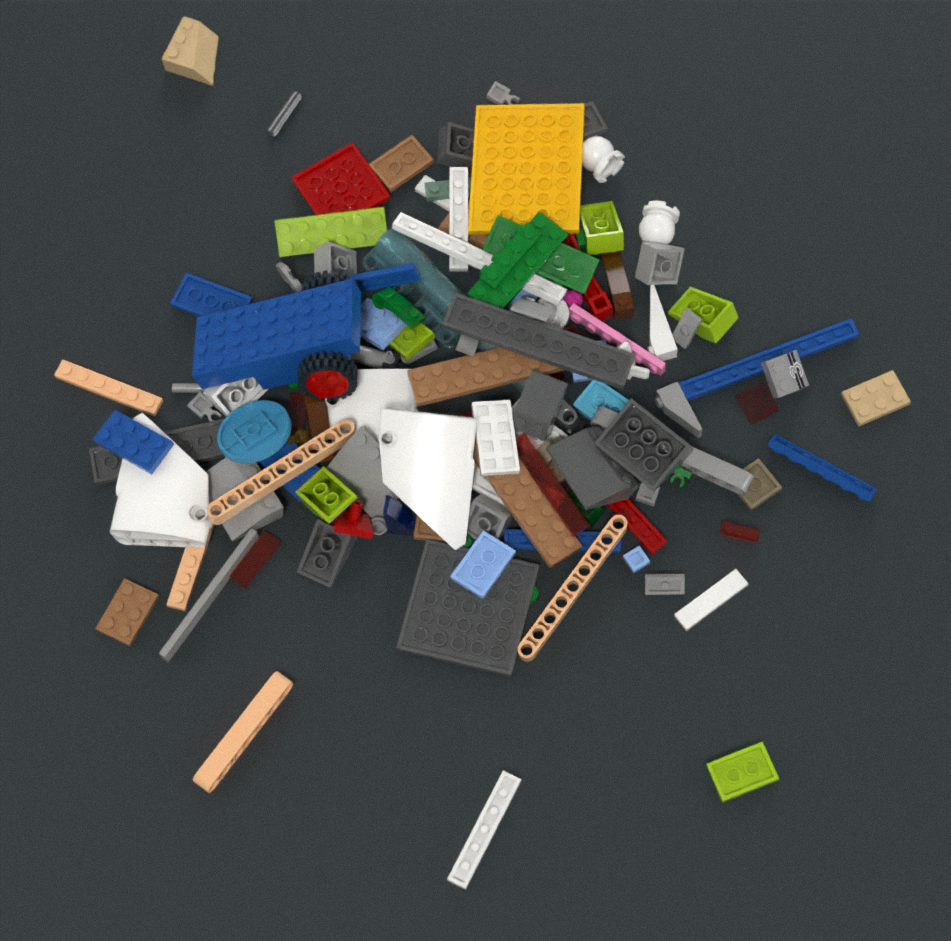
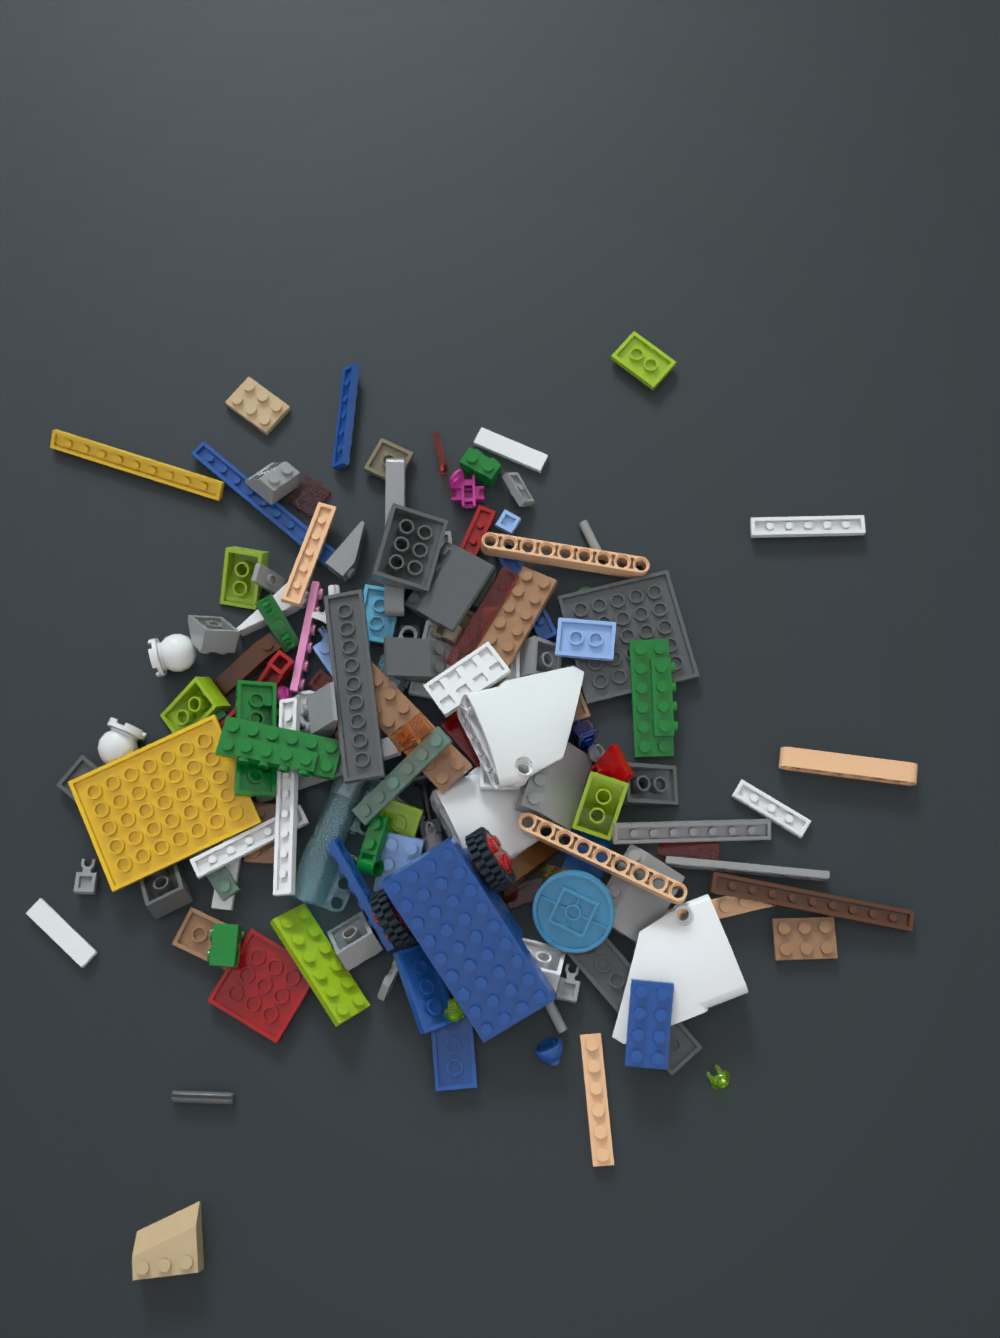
camera: 120 degrees left, 5 degrees up
(63, 486) = (720, 1080): none -> clear neon green plate
(149, 630) = (812, 901): none -> reddish brown plate
(164, 368) = (550, 1050): none -> blue brick
(232, 303) = (454, 1011): none -> clear neon green plate
(247, 647) = (771, 809): none -> white tile
(253, 288) = (423, 989): none -> blue plate
(264, 564) = (691, 831): none -> light grey tile
(384, 167) = (225, 945): none -> green brick
(399, 595) = (652, 698): none -> green plate
(439, 346) = (402, 775): none -> sand green plate
(466, 363) = (411, 733): none -> clear orange slope
(469, 64) = (61, 932): none -> white tile
(582, 626) = (589, 535): none -> light grey piece
(641, 319) = (277, 623): none -> green plate
(692, 370) = (309, 554): none -> light nougat plate
(697, 536) = (465, 495): none -> dark pink piece
(704, 560) = (485, 469): none -> green brick
(863, 271) = (137, 464): none -> yellow plate

